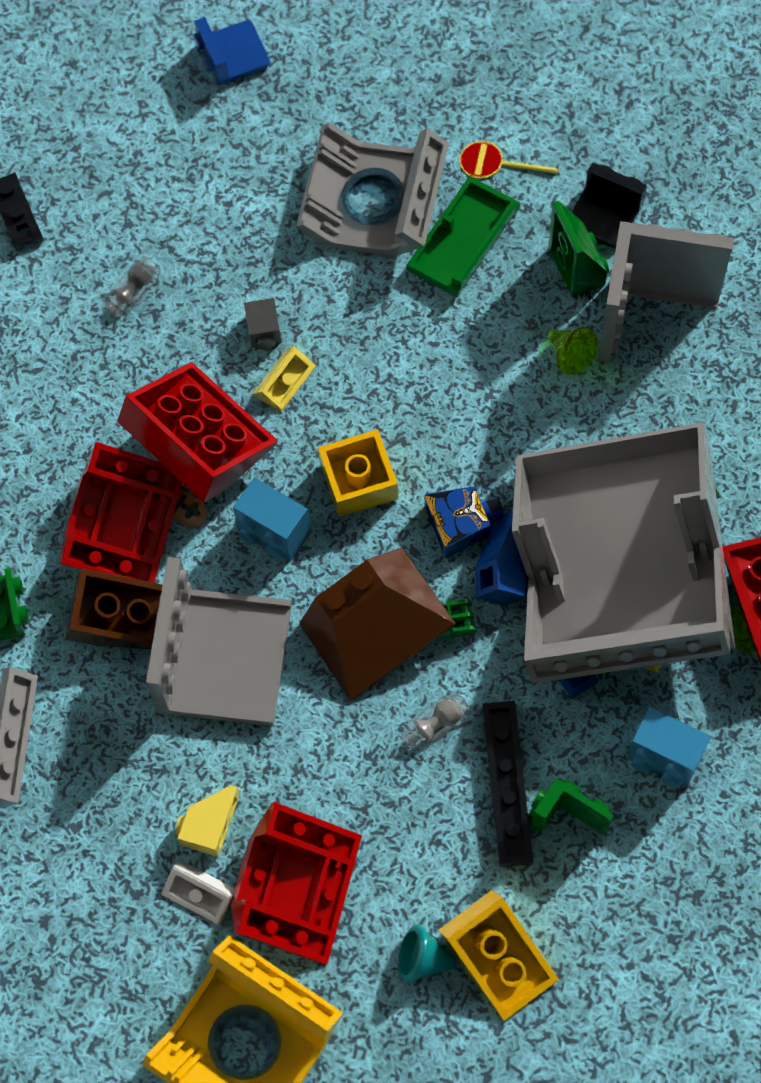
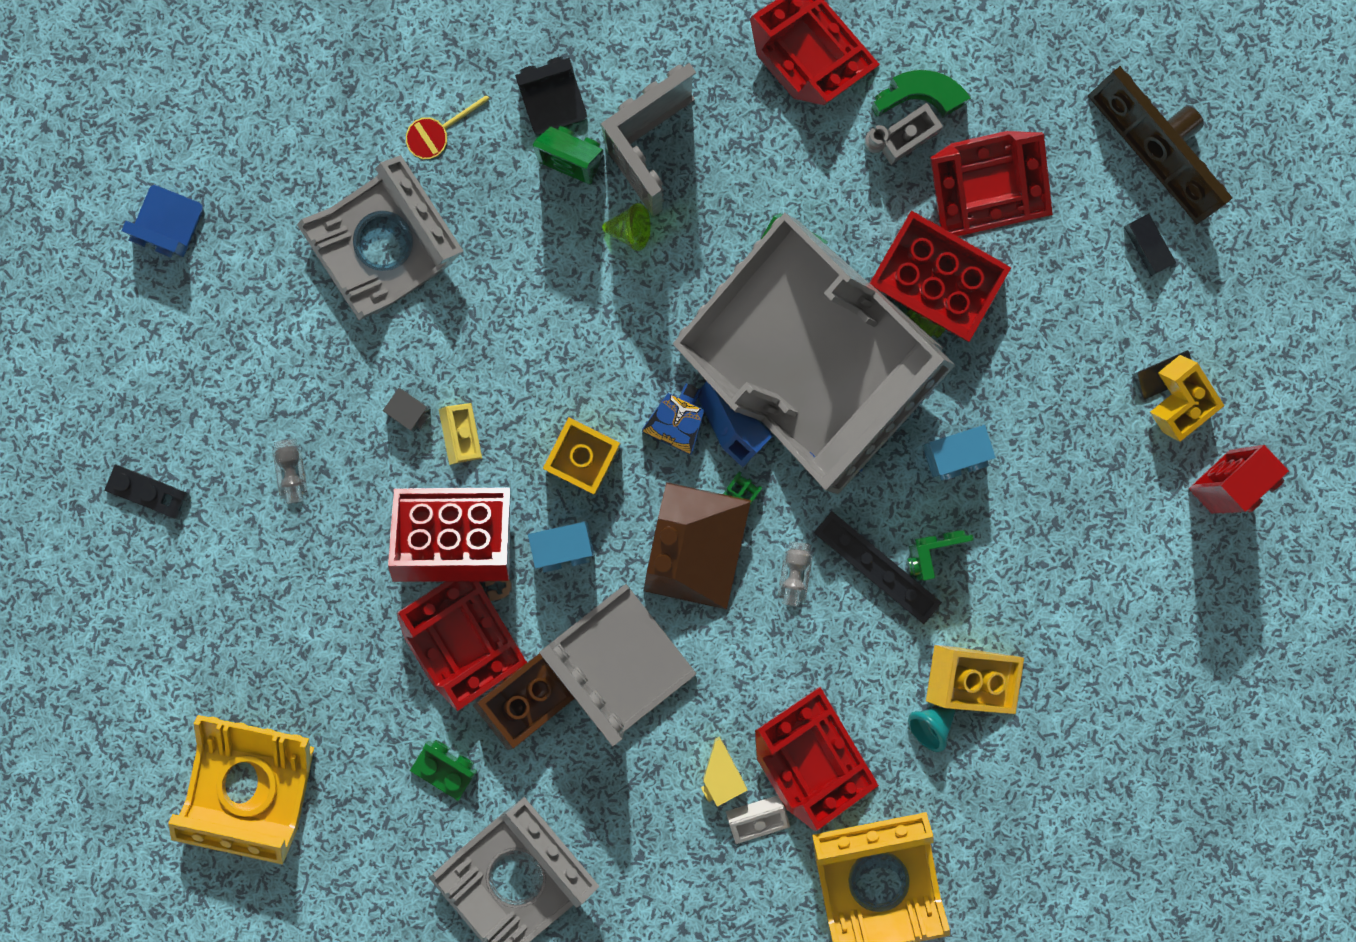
camera: 50 degrees left, 20 degrees up
(463, 236) = (475, 210): green container -> none

